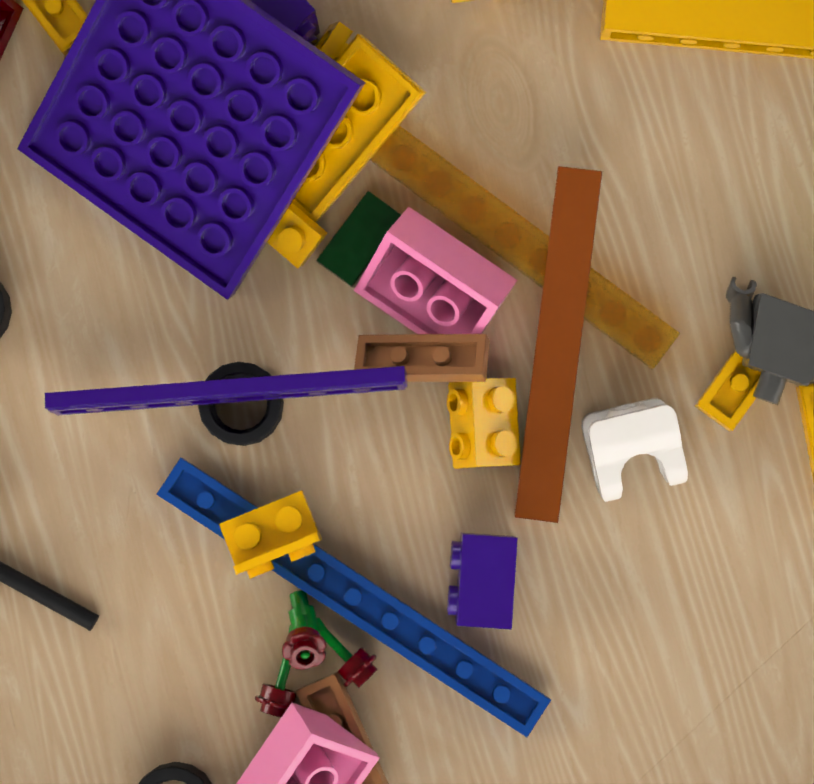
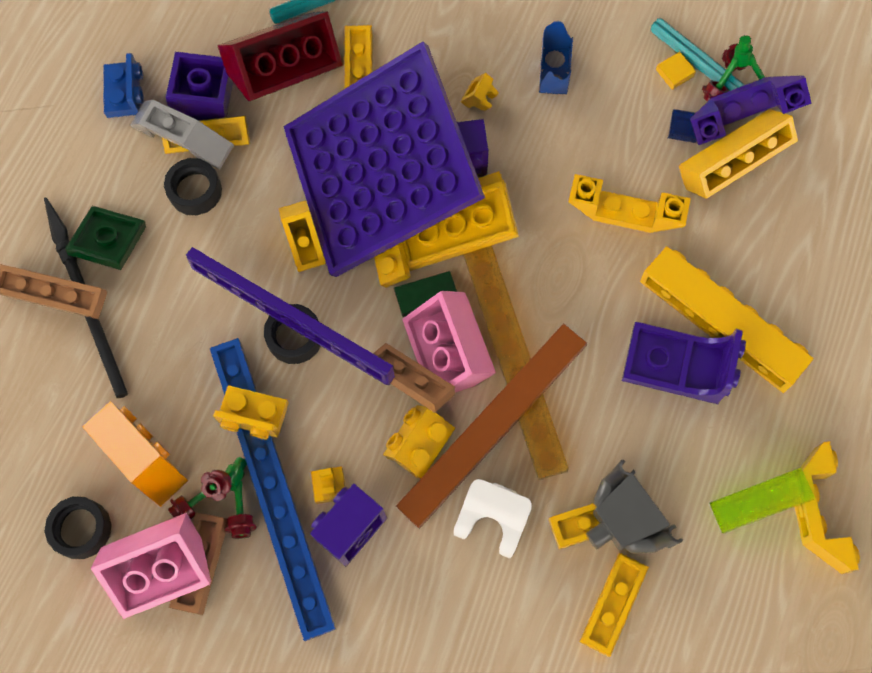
camera: 35 degrees right, 15 degrees down
(154, 274) = (301, 236): none -> yellow slope
(169, 679) = (134, 453): none -> light orange wedge
(419, 548) = (327, 483): none -> yellow tile
(724, 109) = (683, 362): none -> dark purple bracket

